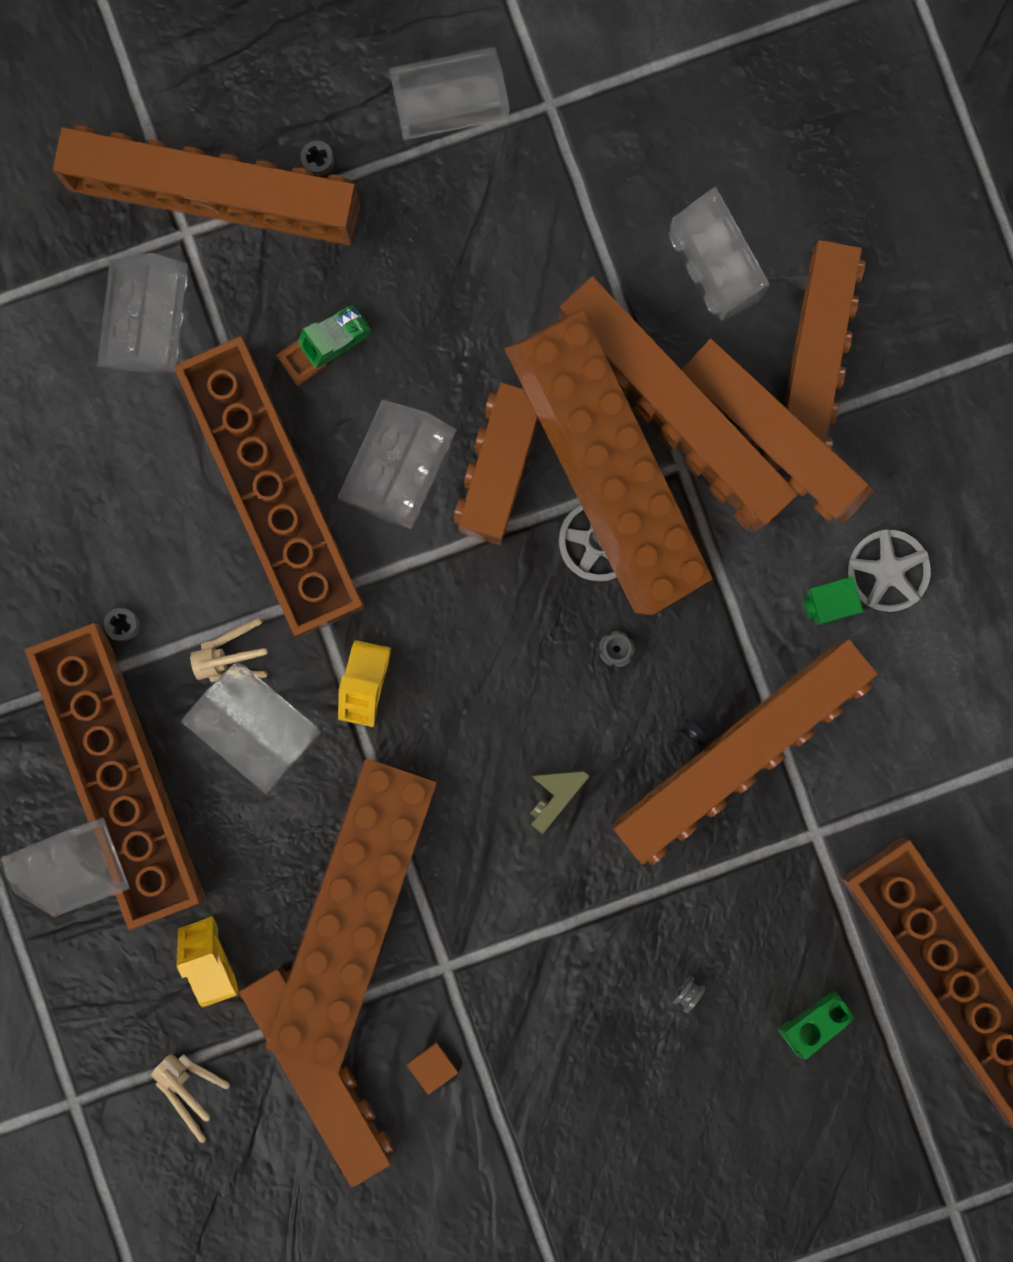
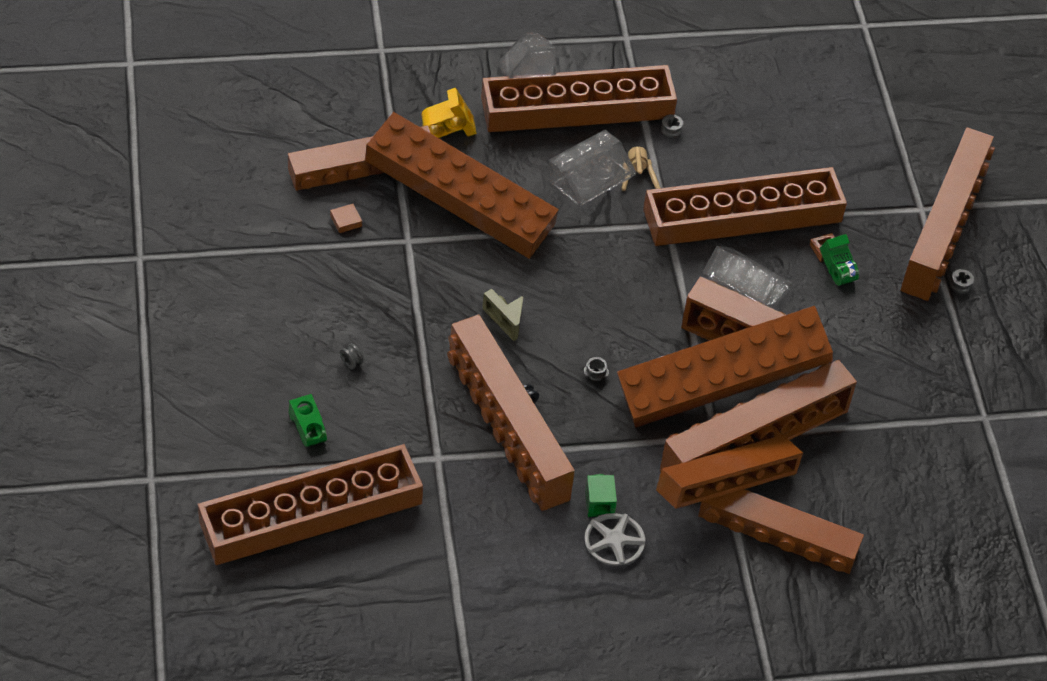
camera: 95 degrees right, 35 degrees down
(142, 314) = (869, 173): clear slope -> none
(170, 1079) = (383, 92): tan plant -> none
(363, 683) = (607, 228): yellow tile -> none
(449, 93) = (998, 356): clear slope -> none
(718, 255) = (861, 479): clear slope -> none

